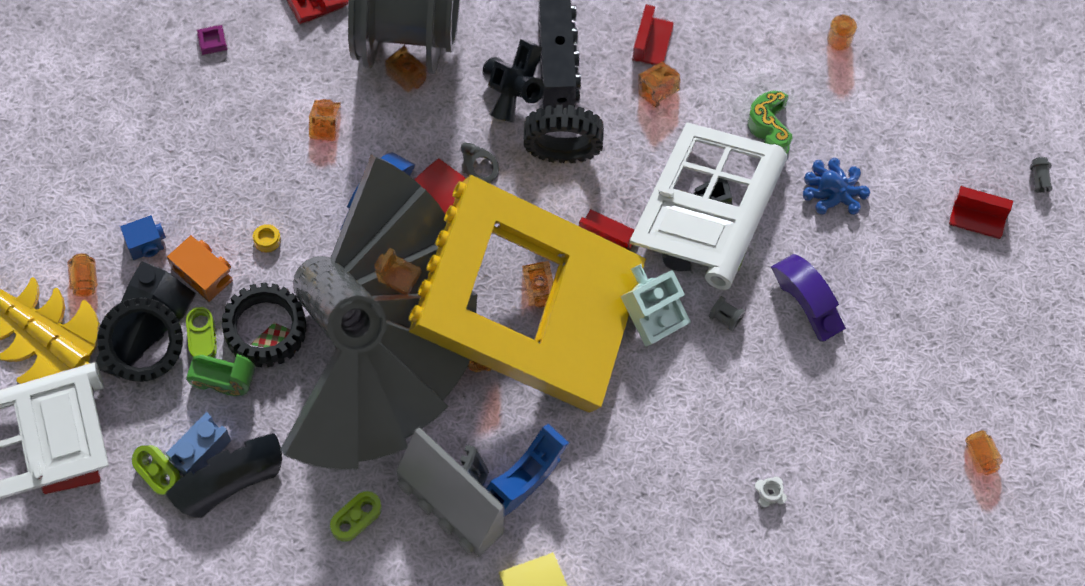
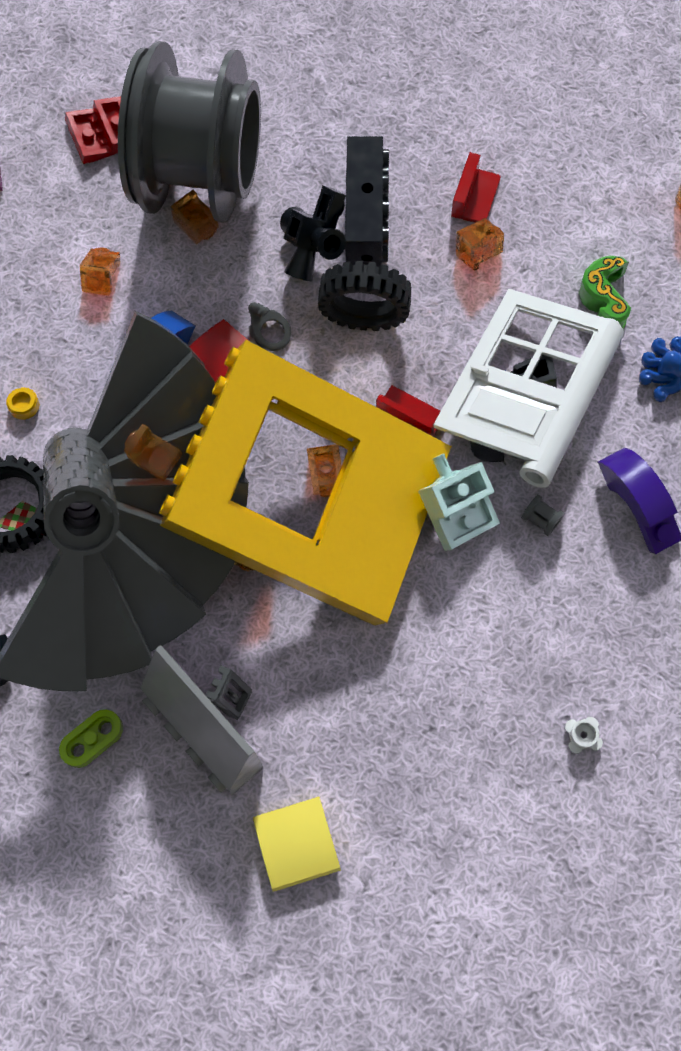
camera: 10 degrees right, 5 degrees up
(530, 470) = (292, 701): blue arch -> none

